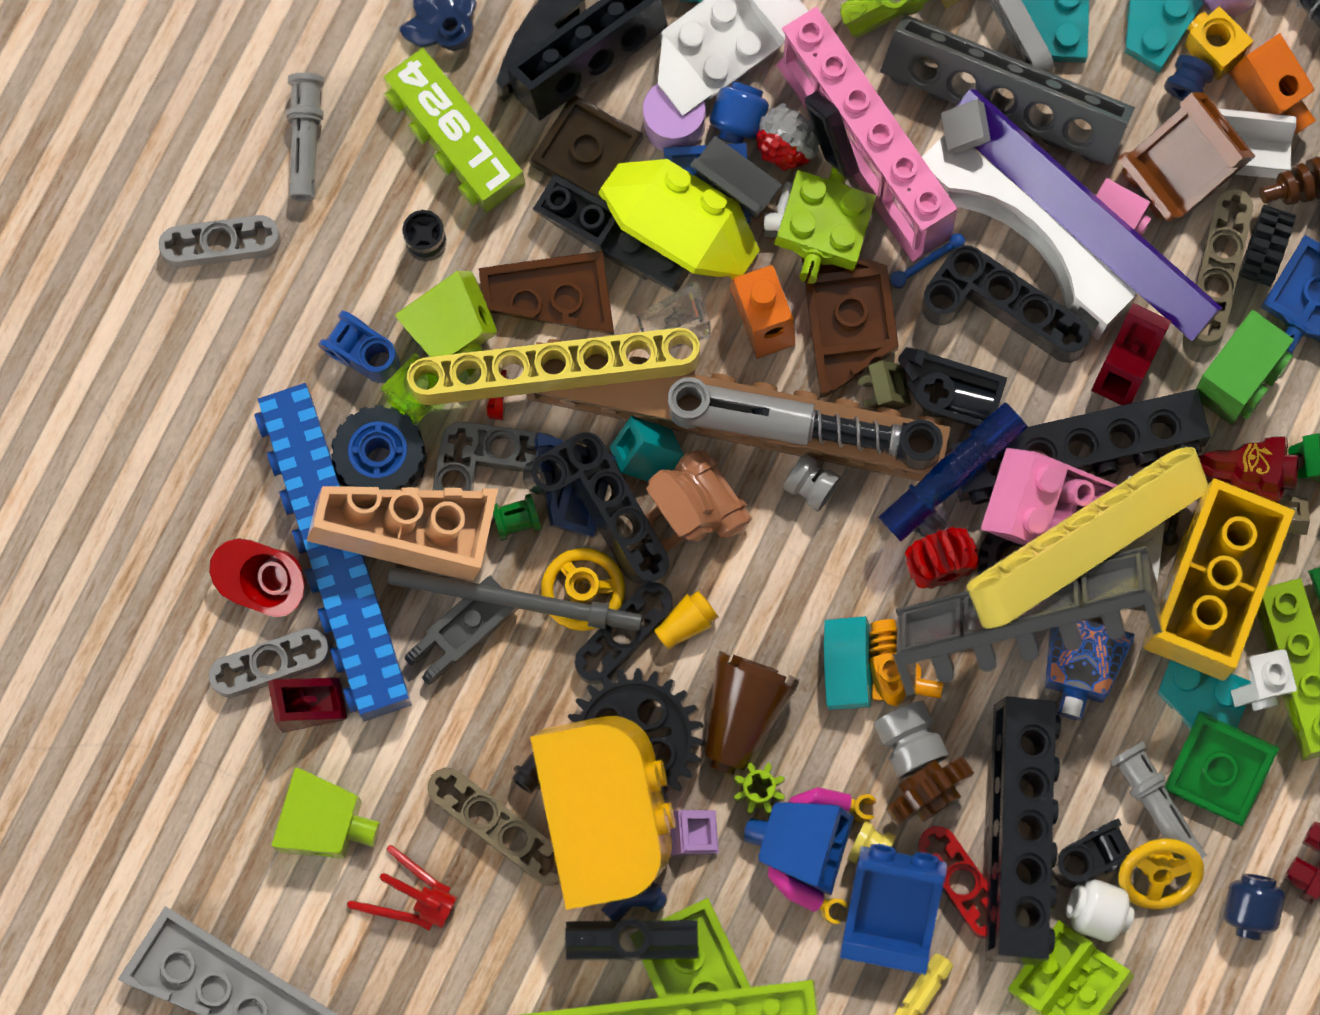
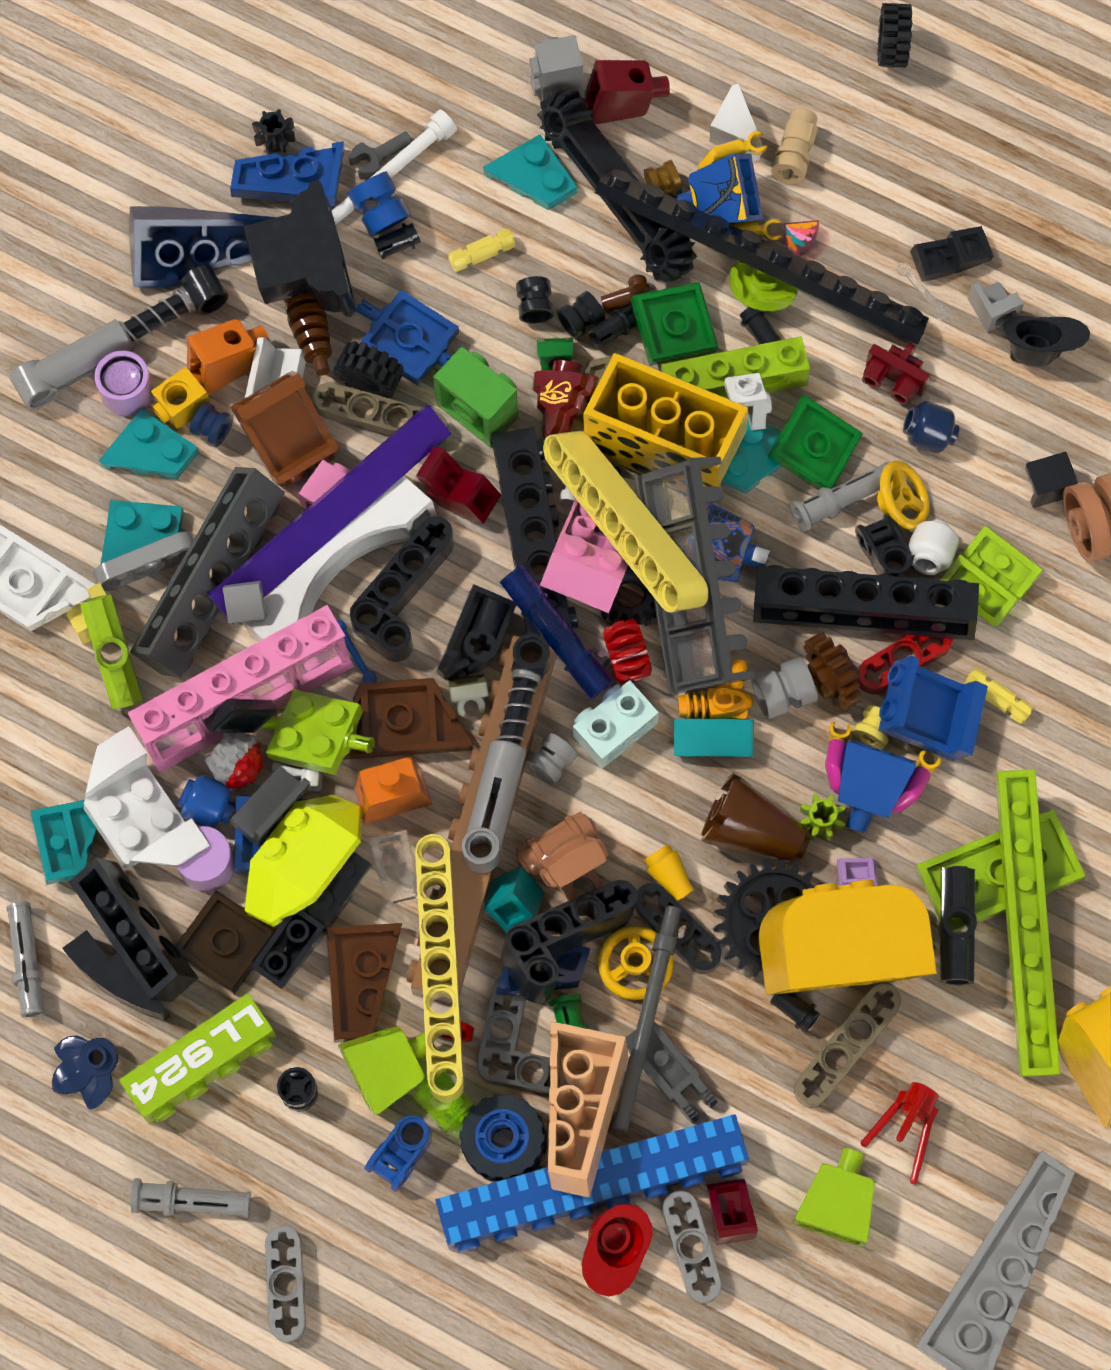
camera: 90 degrees left, 5 degrees down
(857, 550) = (614, 723): none -> light aqua brick

